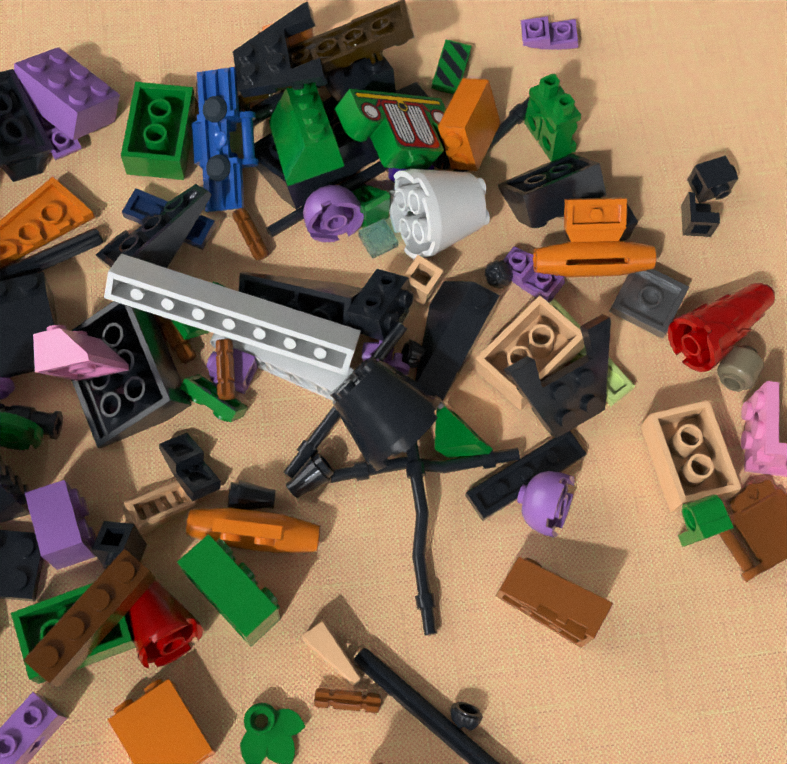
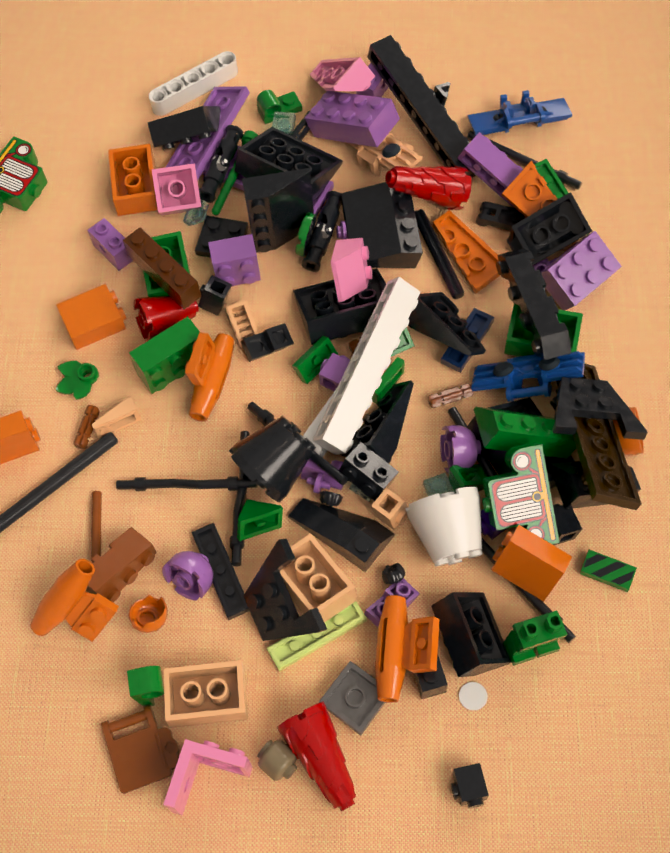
camera: 110 degrees right, 5 degrees down
(115, 128) = (537, 309): none -> black brick
(225, 369) = (327, 360): dark orange axle -> none
(250, 496) = (238, 376): black cone -> none
(311, 475) = (246, 419): black cone -> none
(465, 715) = (57, 498): black piece -> none
(494, 650) = (96, 523): none -> dark orange bar
(551, 36) = (644, 666): medium lavender slope -> none
(605, 547) = (148, 614): none -> orange hair
(616, 187) = (473, 696): none -> white sticker
(623, 635) = (70, 602): none -> orange plate
(698, 218) = (434, 763): black panel -> none

